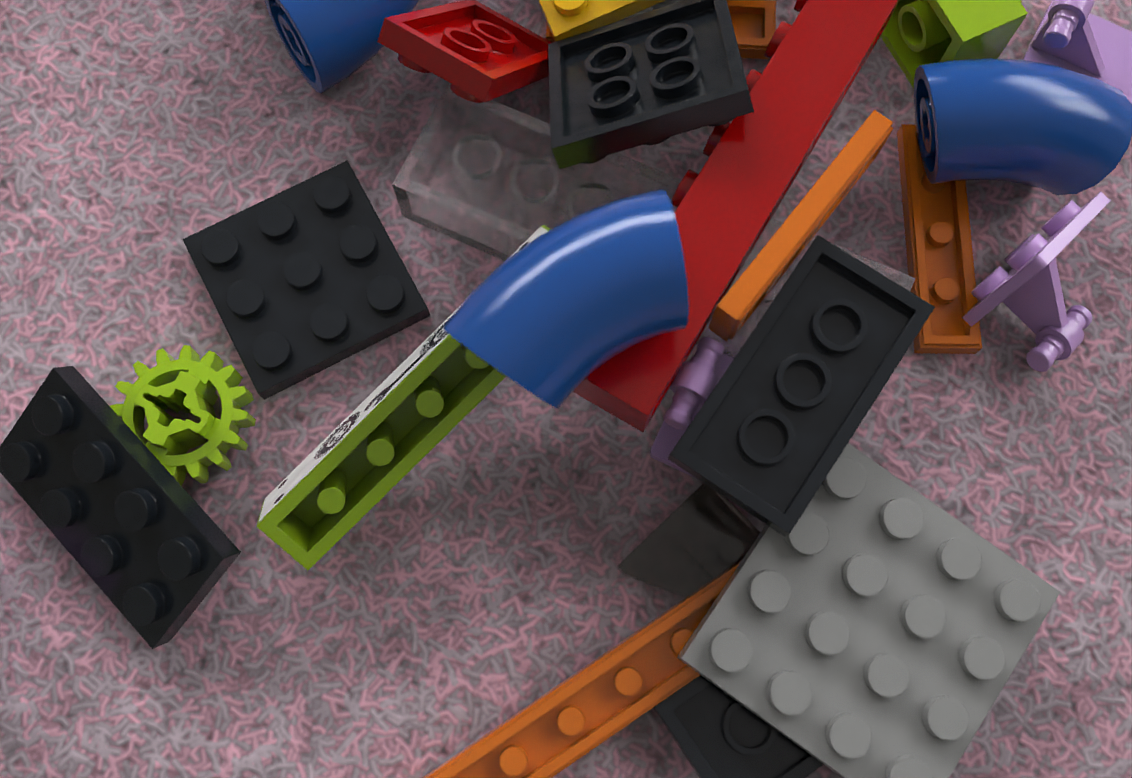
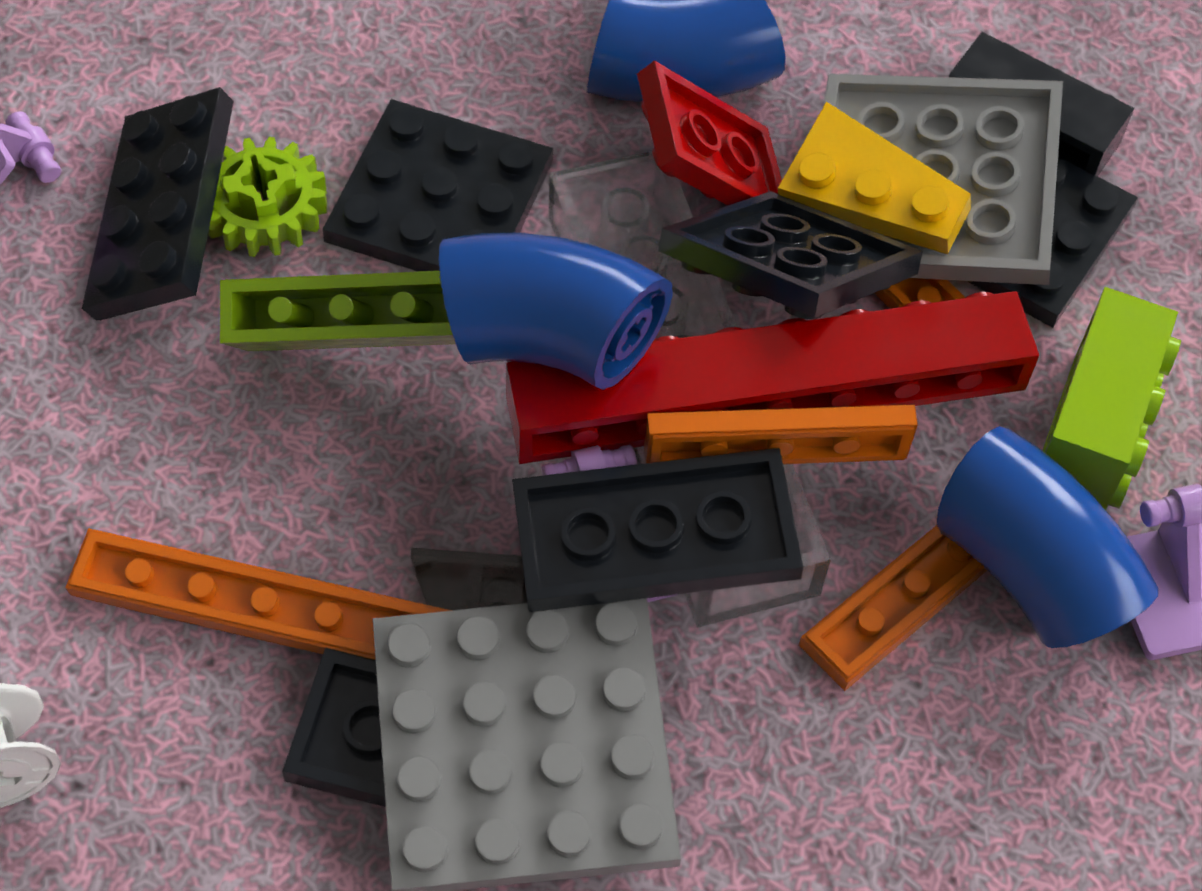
camera: 45 degrees right, 15 degrees down
(1035, 290) = (932, 644): lavender plate -> none

